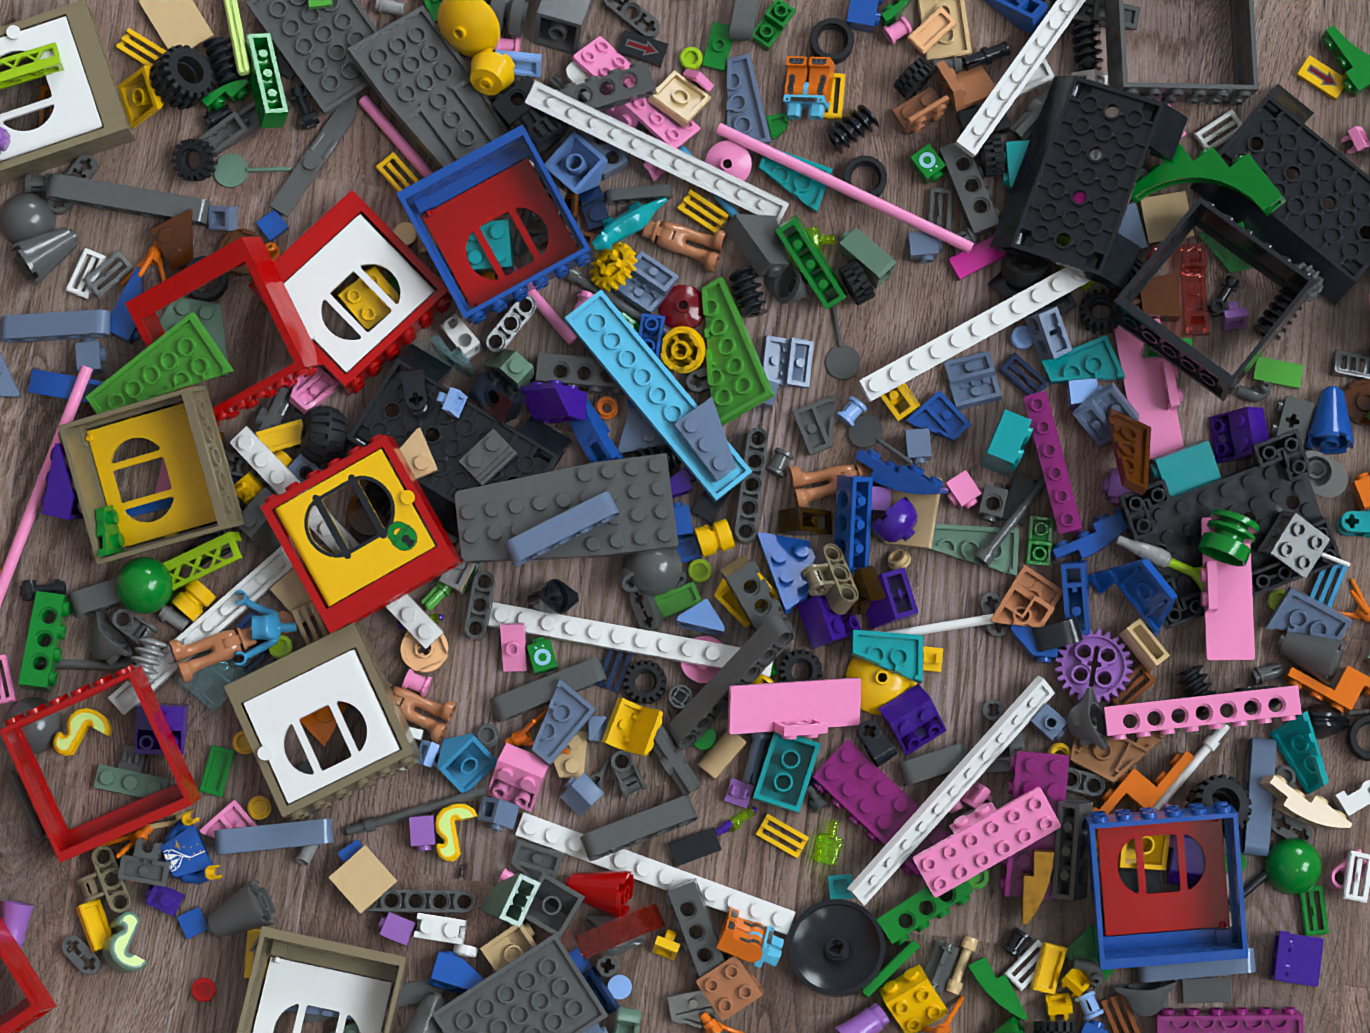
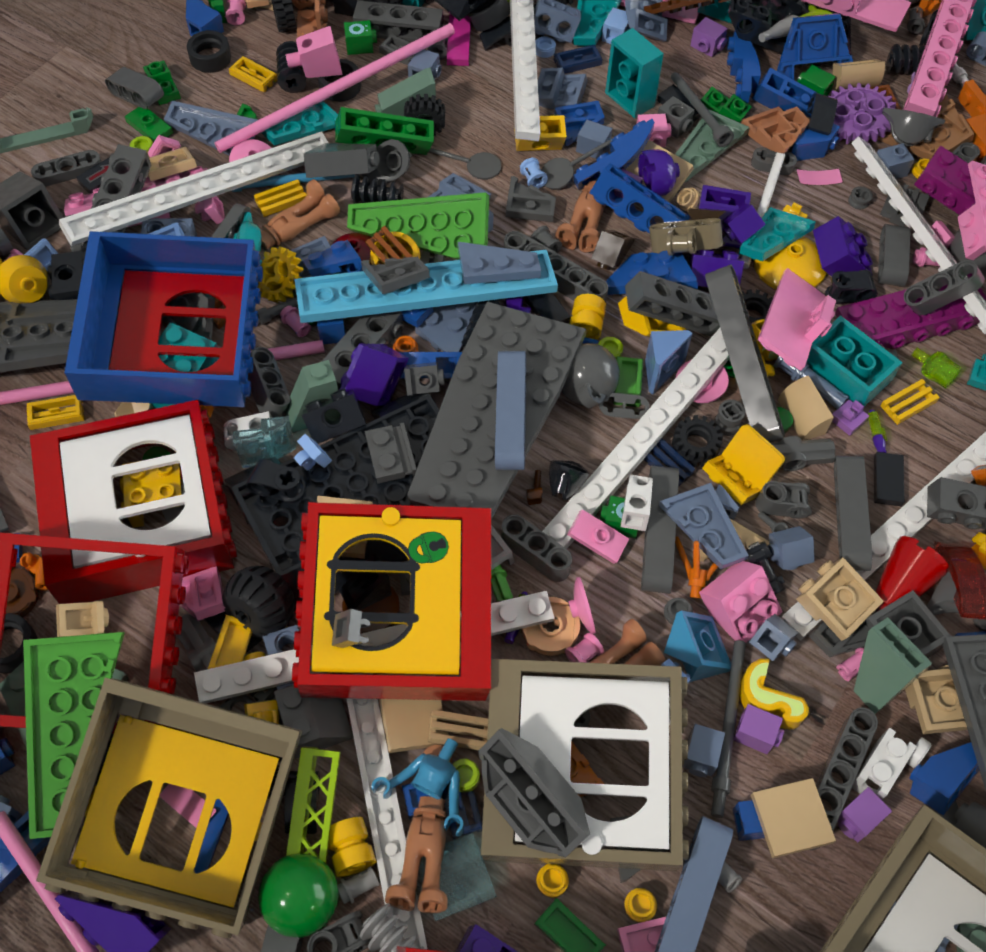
camera: 60 degrees left, 20 degrees down
(108, 529) = (192, 897): green wing -> none
(223, 339) = (81, 618): none -> tan bracket
(272, 699) = (532, 795): none -> dark grey wedge
(309, 517) = (347, 629): none -> dark grey tile
(383, 800) = (703, 750): none -> sand blue brick
(446, 664) = (580, 606): none -> bright pink dish
(528, 582) = (534, 495): none -> reddish brown hand
(549, 661) = (637, 503): none -> white leg
(550, 845) = (839, 598): none -> tan plate
(561, 774) = (759, 555): none -> black bar
(572, 442) = (415, 371): none -> dark grey brick
(646, 367) = (396, 273): none -> dark grey wing
(651, 302) = (332, 259): none -> blue wing
(684, 350) = (378, 237): none -> dark orange tile
(808, 86) = (232, 76): hips -> none
(859, 151) = (316, 54): none -> bright pink torso
(877, 620) = (742, 223): none -> dark purple brick
(890, 816) = (957, 287): none -> dark grey beam
(1000, 663) = (819, 177): none -> bright pink sticker
(1053, 463) = (688, 56): magenta bracket -> none
(1111, 612) = (817, 80): none -> green brick

